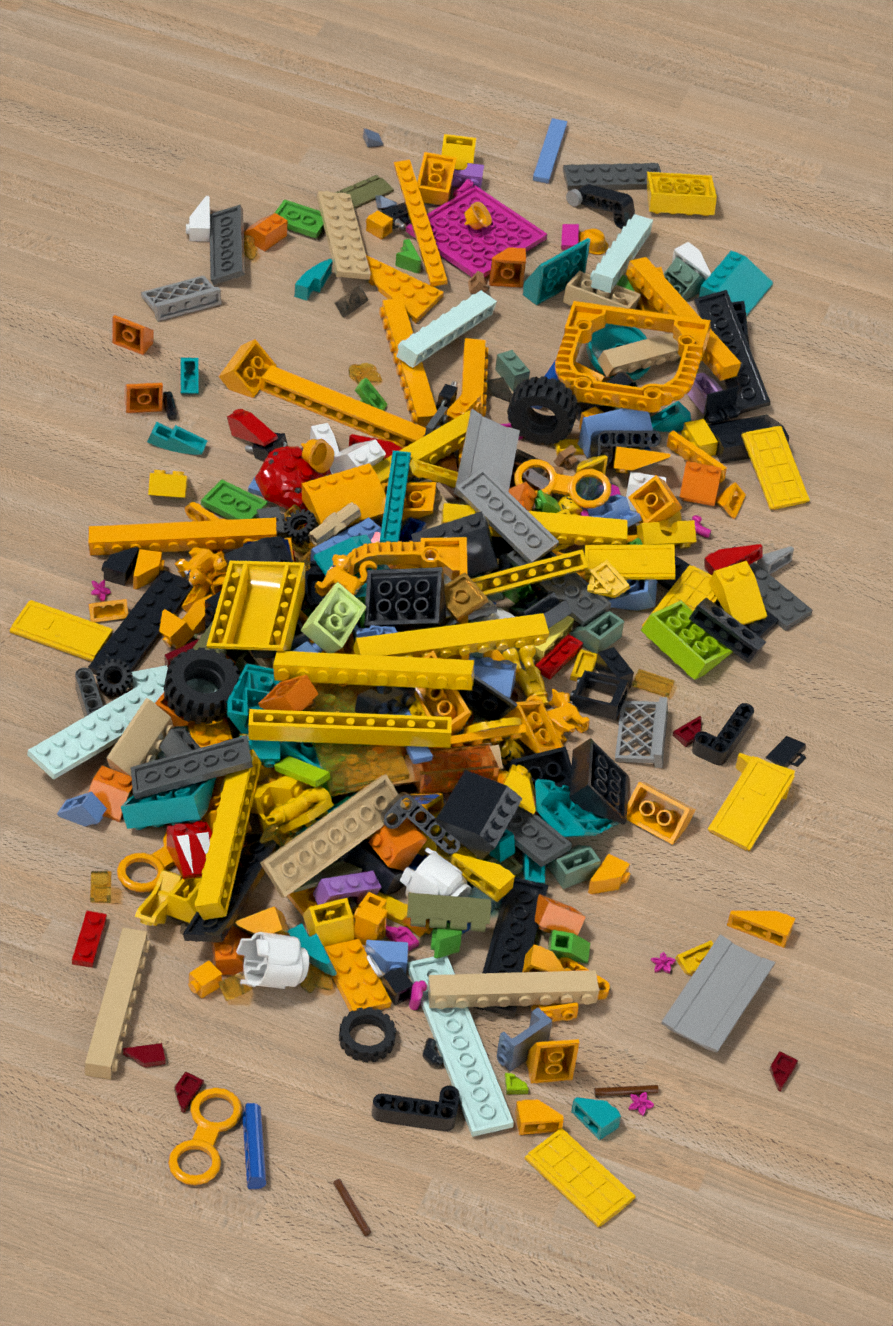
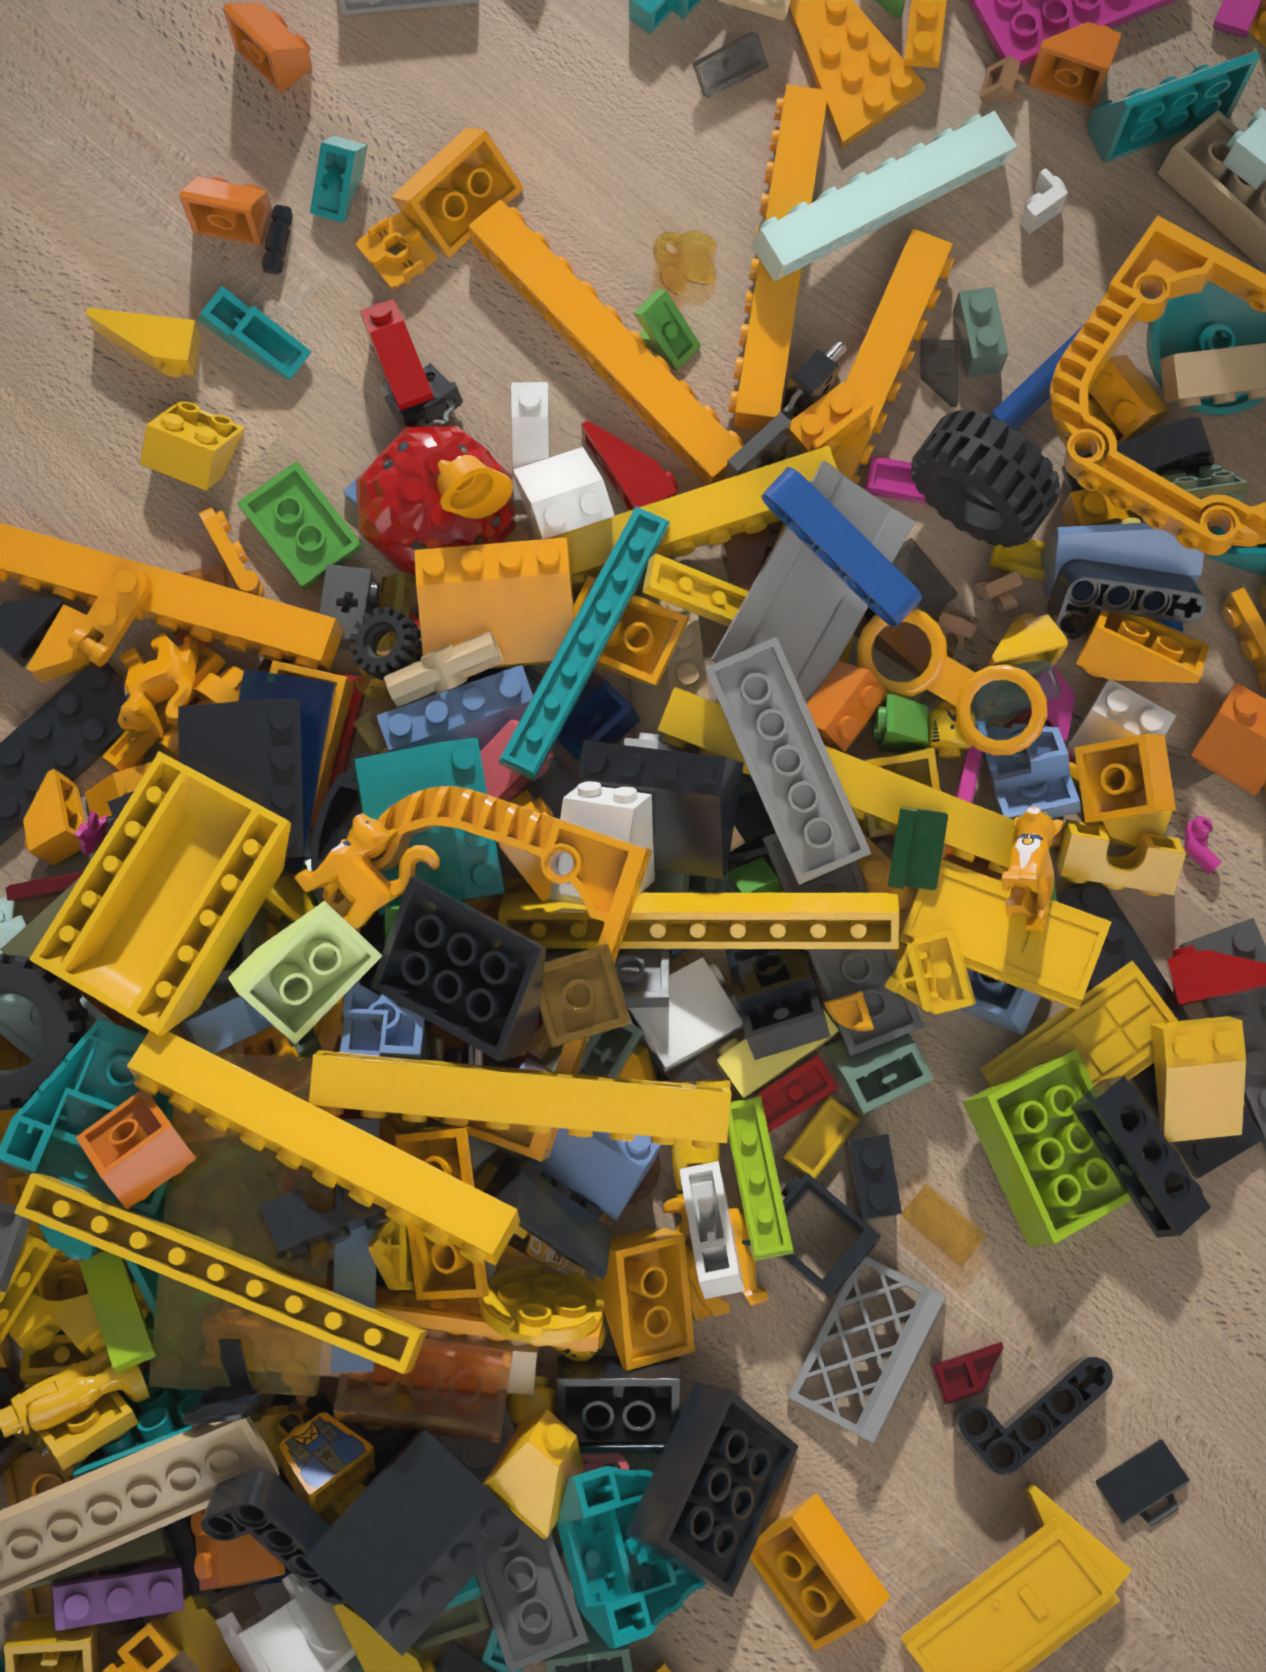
camera: 25 degrees right, 30 degrees up
(128, 451) = (159, 341): none -> yellow slope
(168, 541) = (112, 612): none -> light orange plate
(196, 626) = (91, 833): none -> dark pink plant
(229, 397) = (413, 258): none -> light orange piece
(373, 773) = (229, 1401): none -> black piece
(494, 437) = (841, 547): none -> blue beam
(518, 320) = (1045, 203): none -> white bracket
(555, 693) = (711, 1230): none -> white slope
(564, 676) = (758, 1180): none -> lime tile
(577, 535) = (918, 848): none -> dark green panel
(578, 604) = (850, 1012): none -> light orange tile
(630, 526) = (1031, 868): none -> light orange animal

